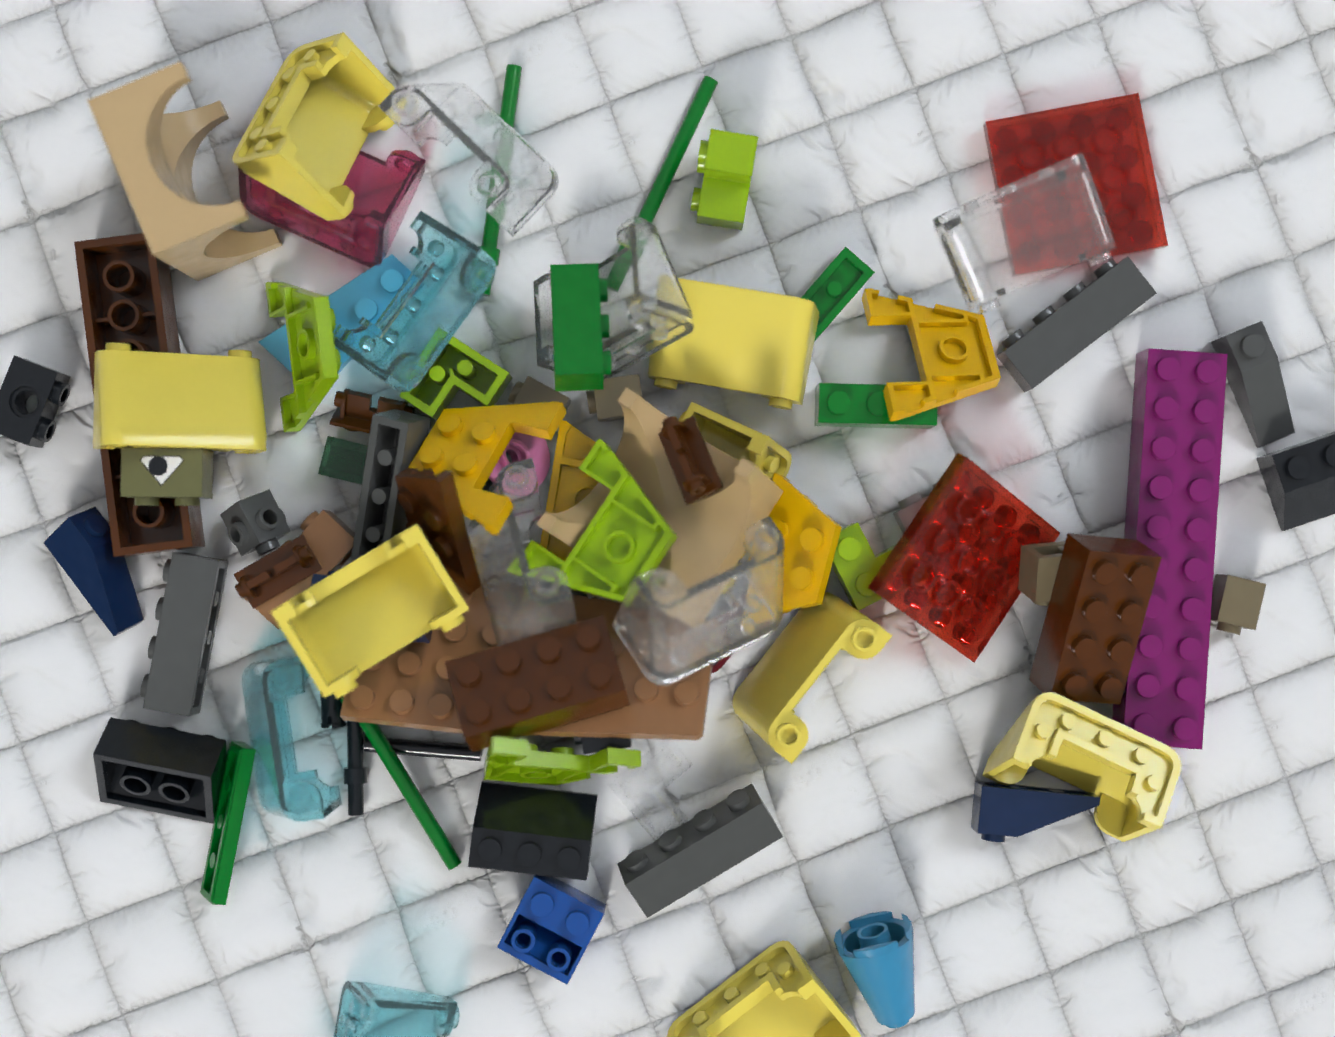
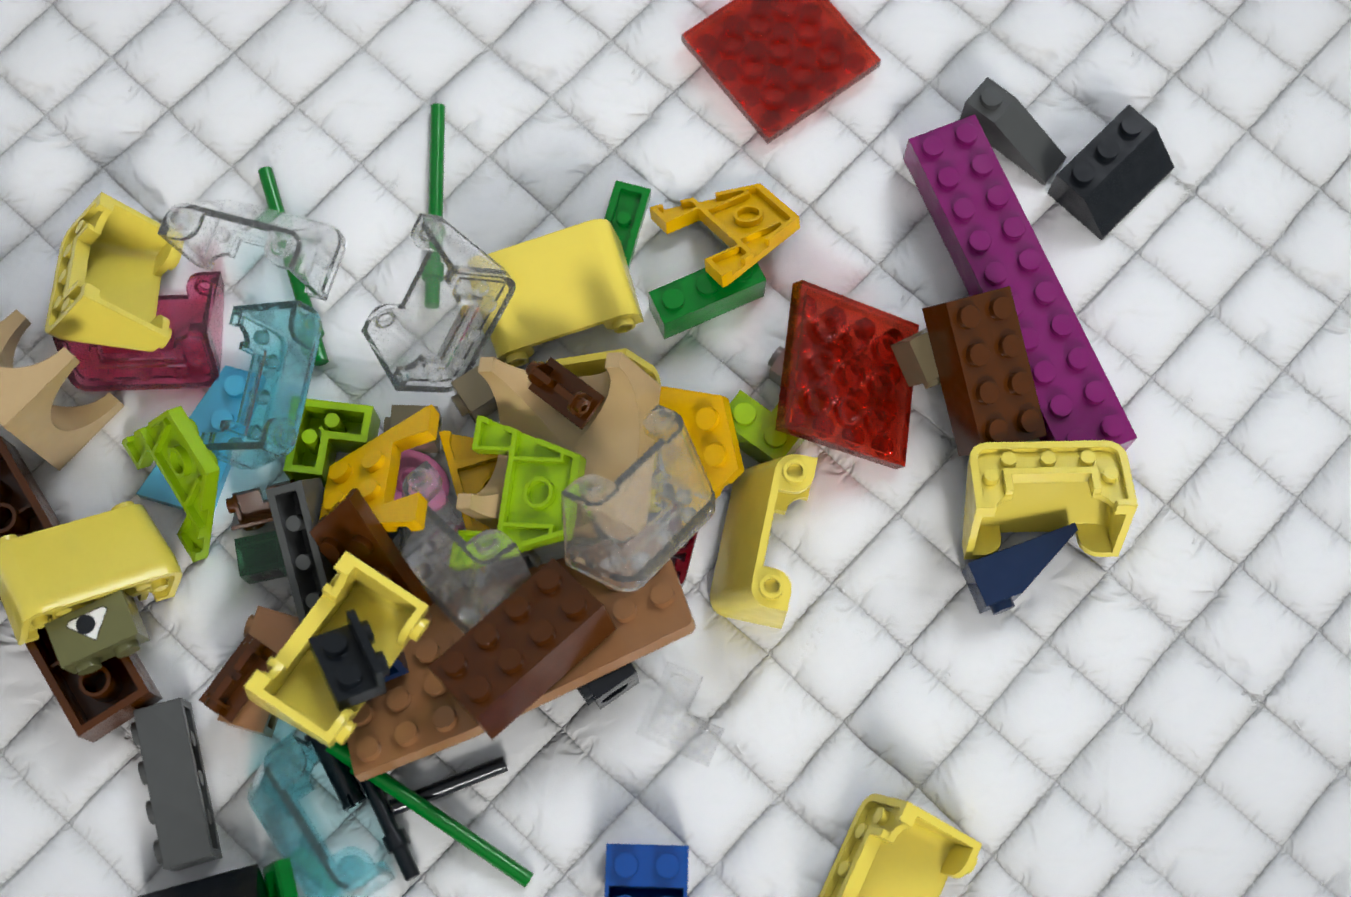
camera: 25 degrees left, 15 degrees down
(86, 555) = (55, 754): dark blue slope -> none
(255, 524) = (200, 649): dark grey brick -> none
(376, 624) = (350, 663): none -> black bracket
(522, 762) = (549, 741): lime wing -> none
(533, 830) = (586, 808): black slope -> none
(579, 327) = (417, 336): green brick -> none
(699, 850) = (747, 747): dark grey brick -> none
(727, 172) = (485, 163): lime brick -> none
(881, 962) = (968, 772): dark azure cone -> none
(1025, 233) = (755, 97): clear windscreen -> none
(1075, 324) = (839, 153): dark grey brick -> none
(1236, 603) = (1097, 309): dark tan brick -> none

